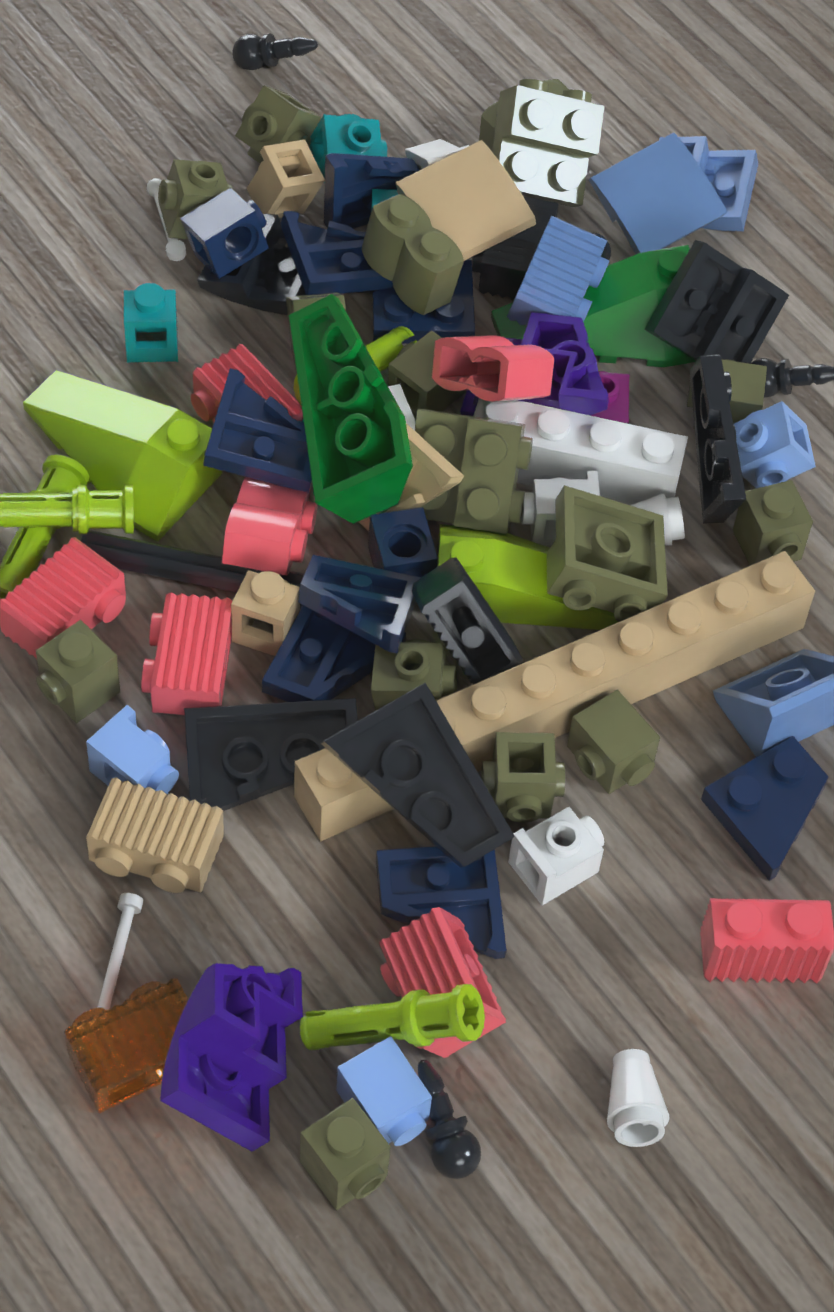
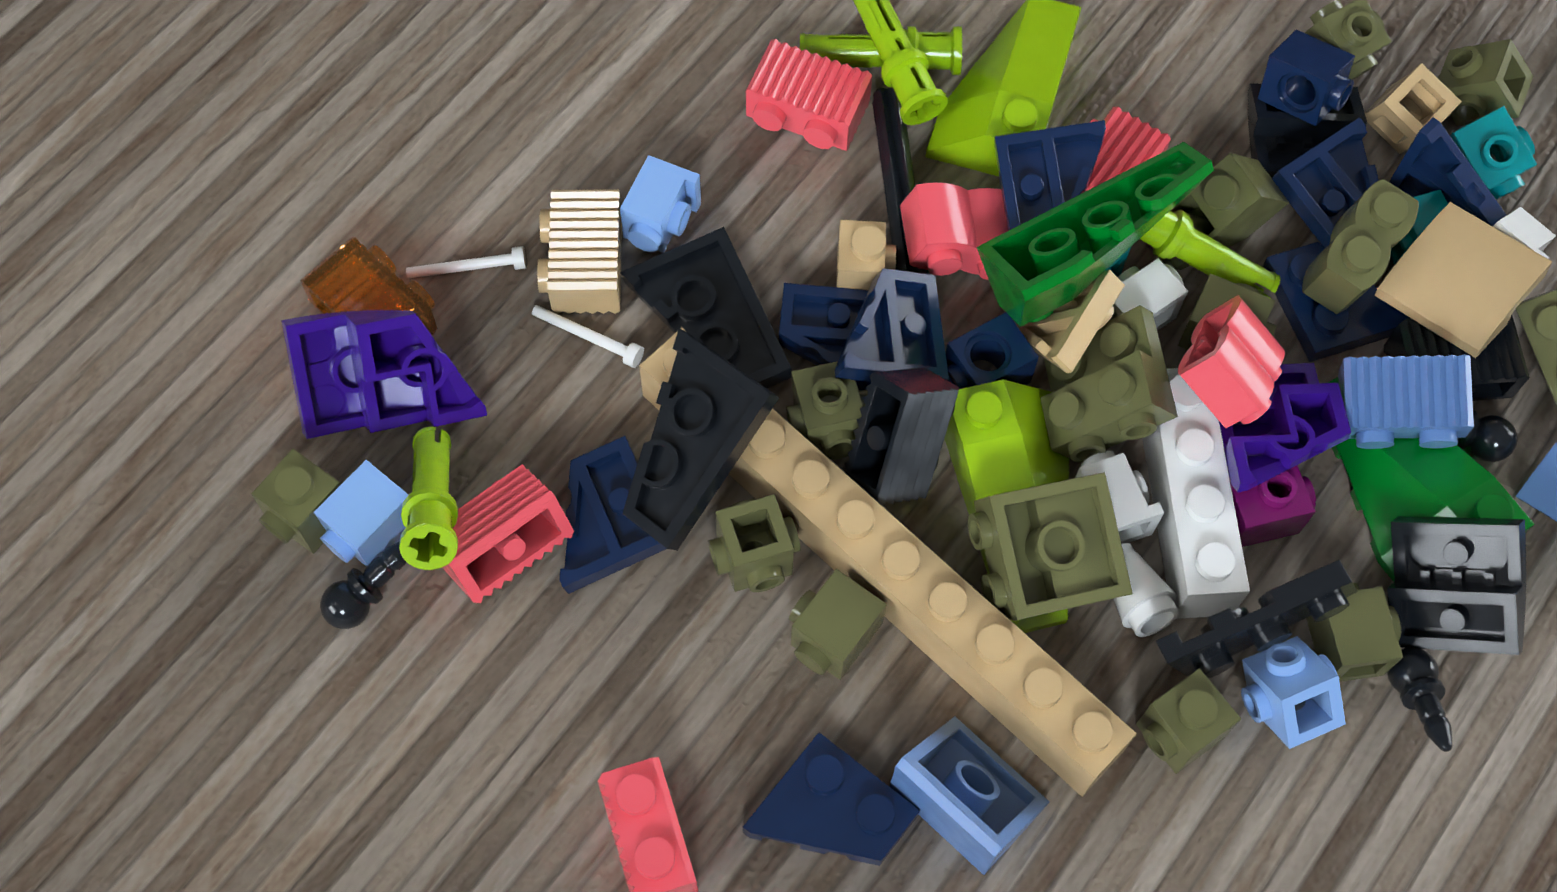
camera: 75 degrees right, 10 degrees up
(77, 671) = (732, 130): olive brick -> none
(150, 310) = (1173, 51): teal brick -> none
(191, 653) = (788, 216): coral brick -> none
(277, 834) = (631, 354): none -> white piece
(554, 868) = (689, 628): white brick -> none
(635, 1101) = (435, 750): white cone -> none

